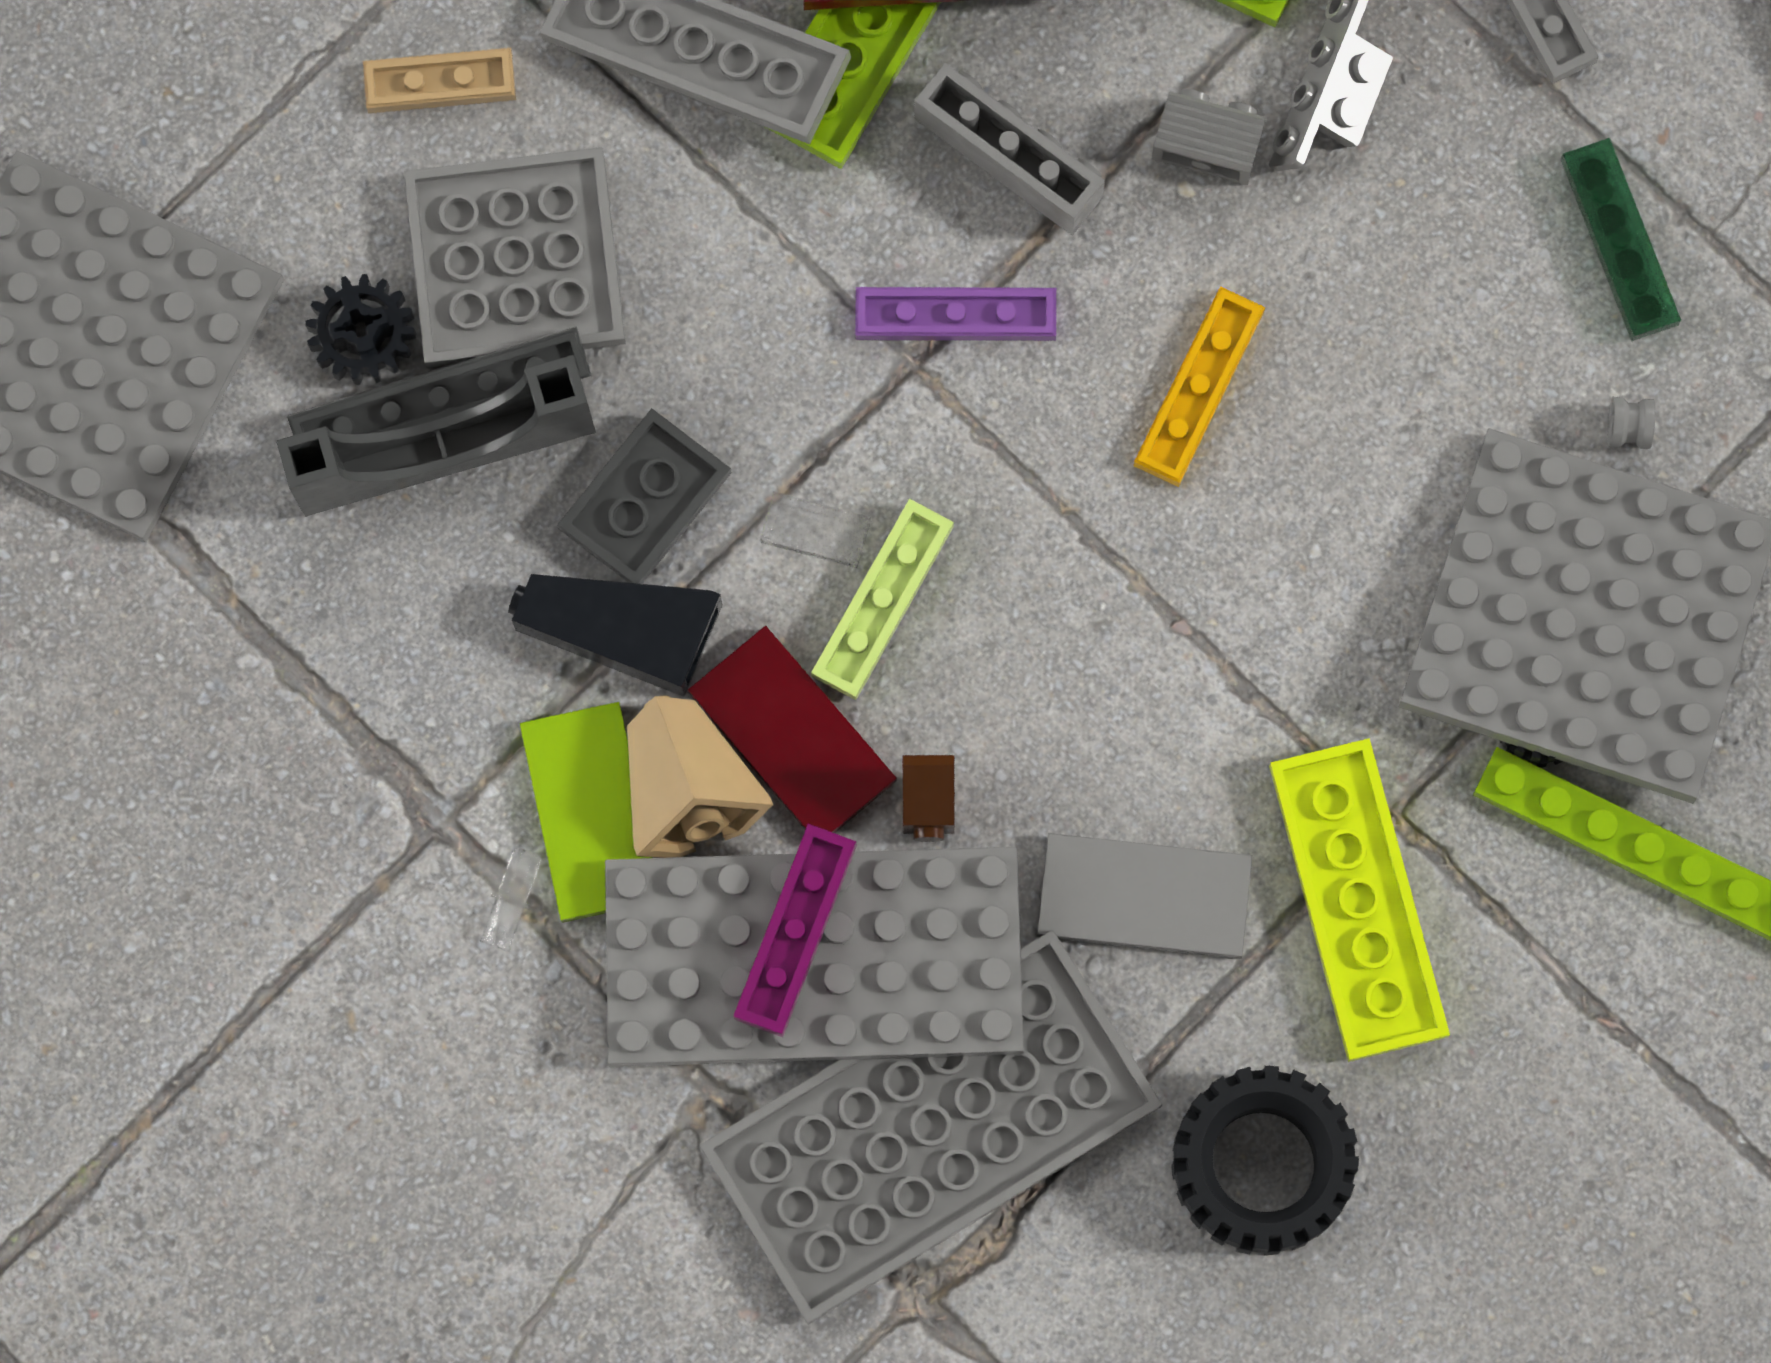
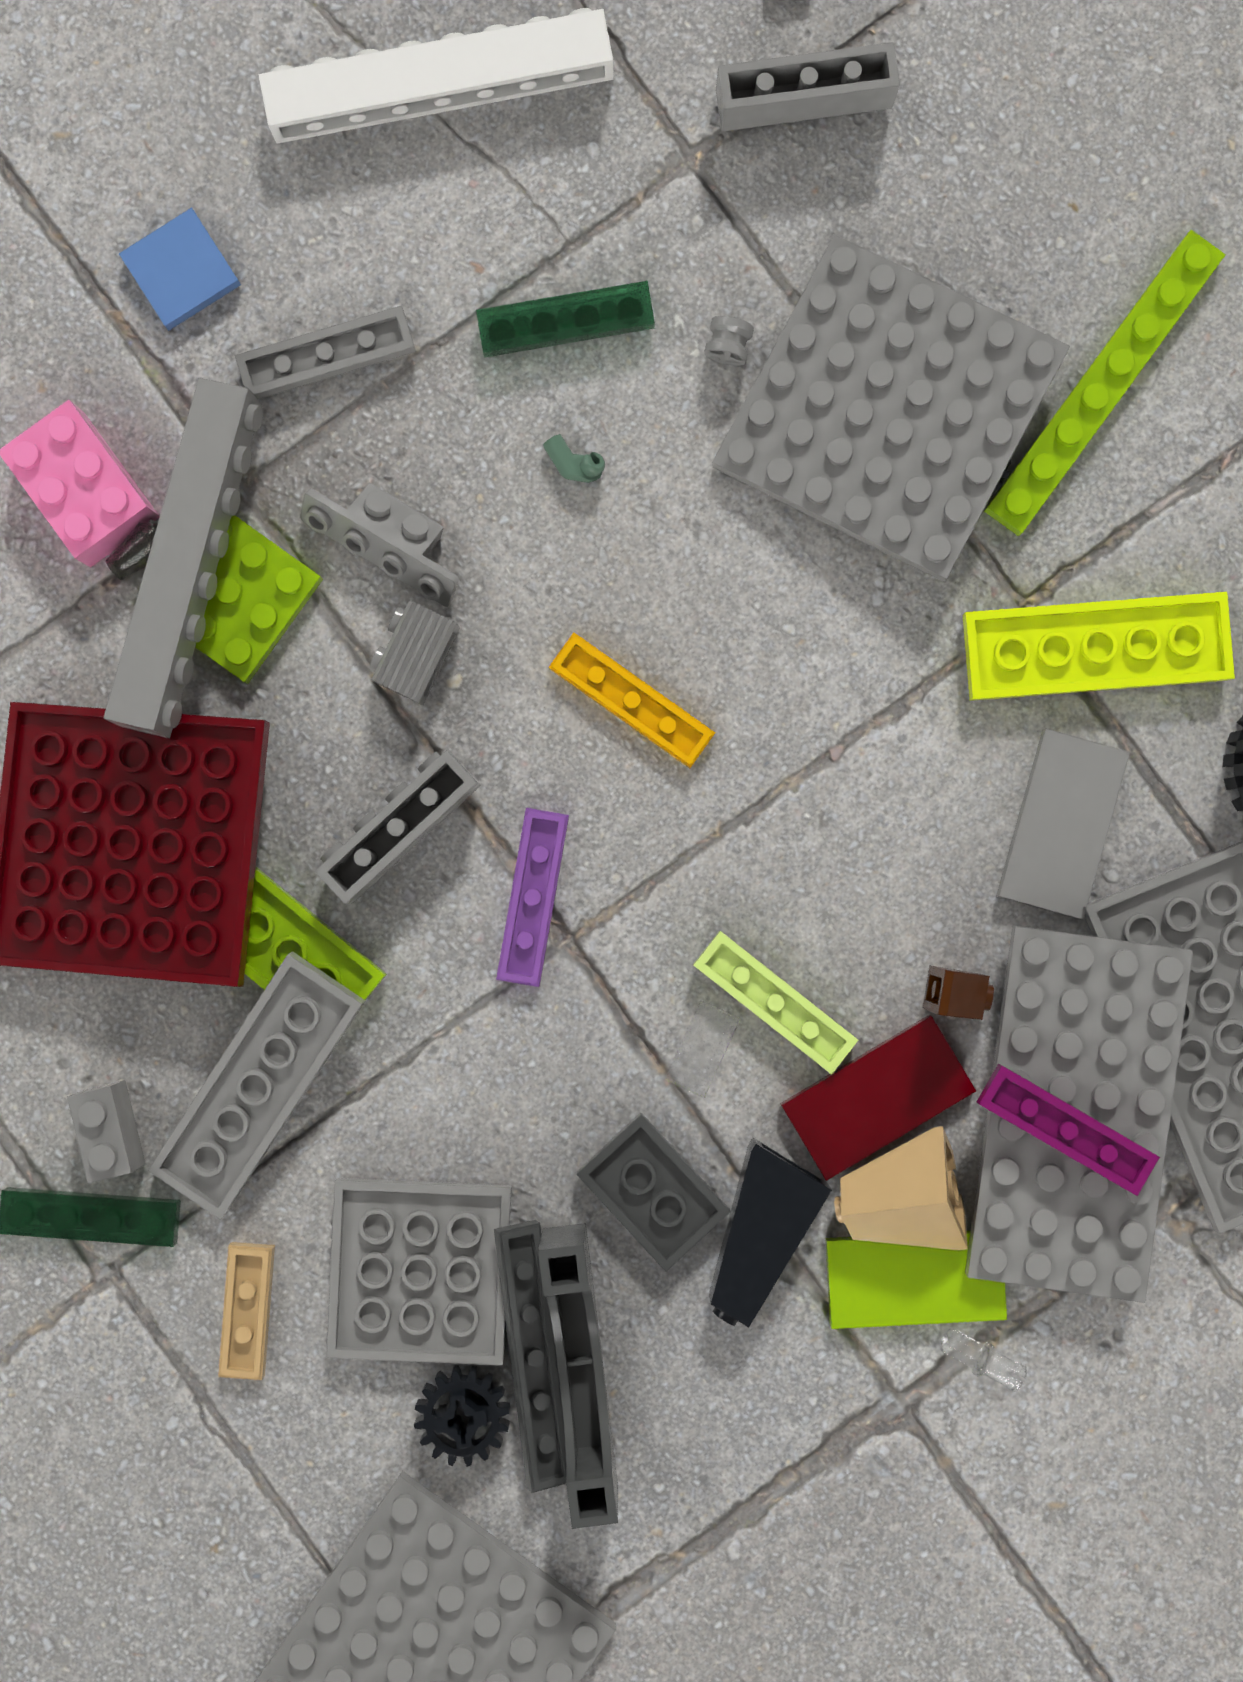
camera: 85 degrees left, 10 degrees up
(1455, 276) = (574, 466): none -> sand green arm

